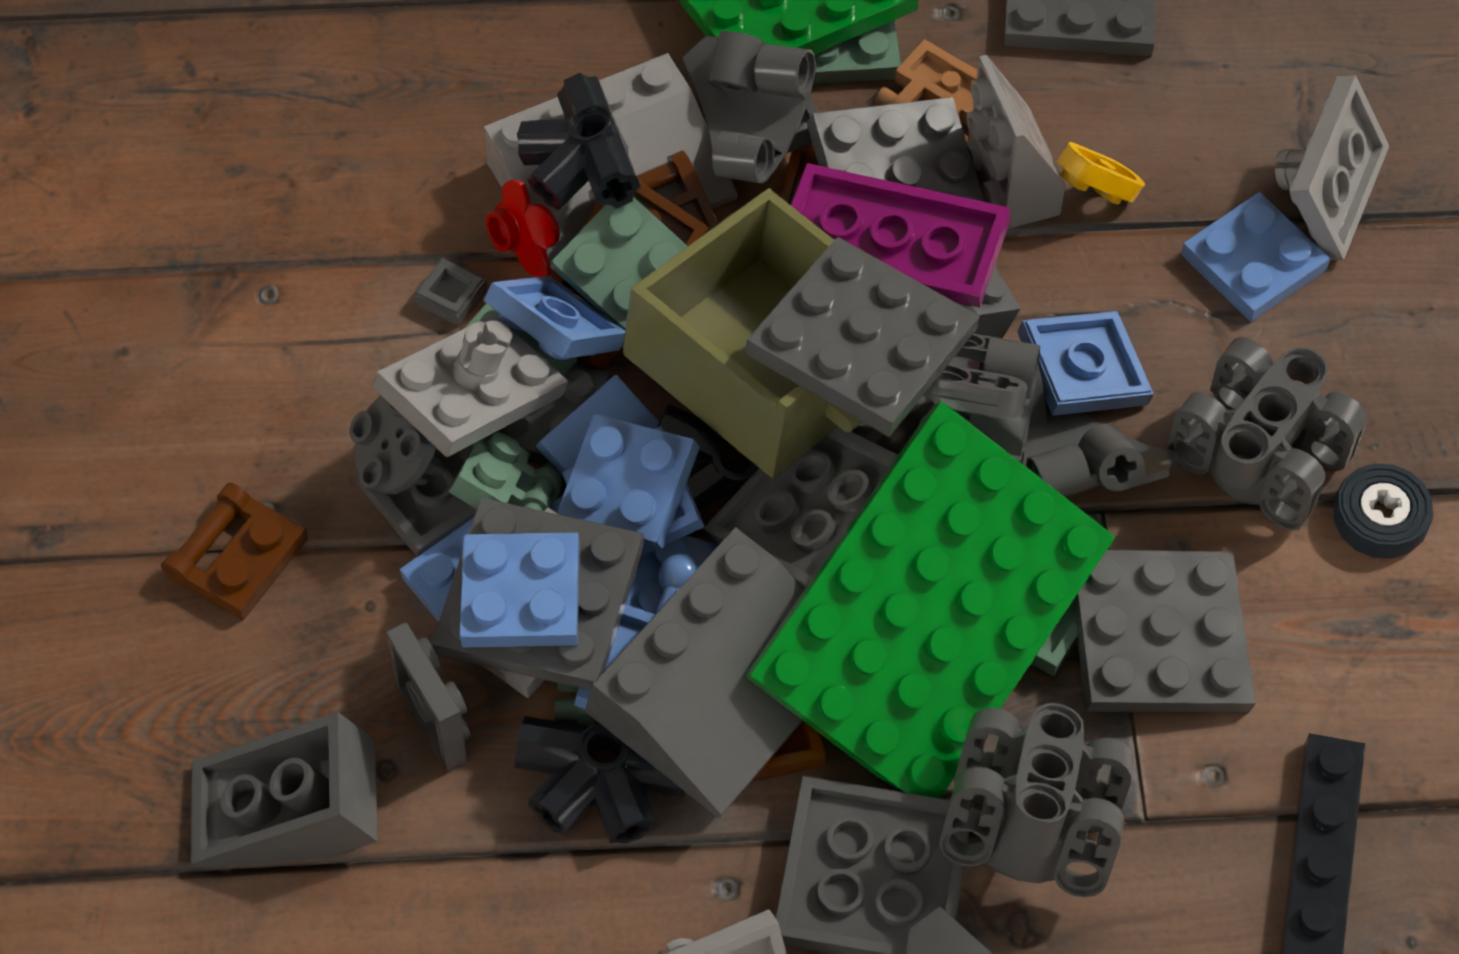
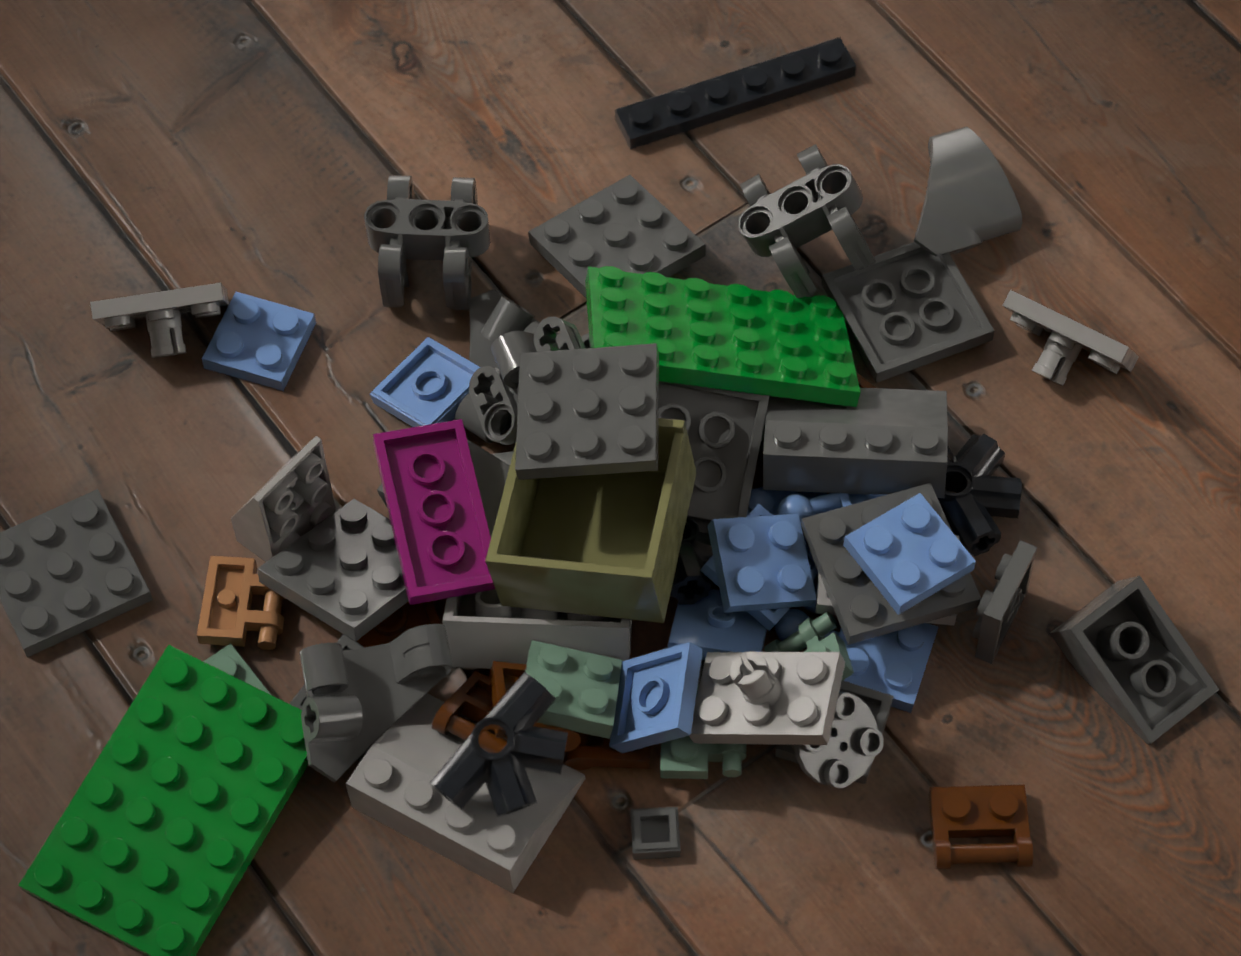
camera: 120 degrees left, 0 degrees up
(523, 228) = (576, 797): red plate -> none
(1104, 174) = (260, 449): yellow plate -> none
(1367, 528) = (430, 159): black bush -> none

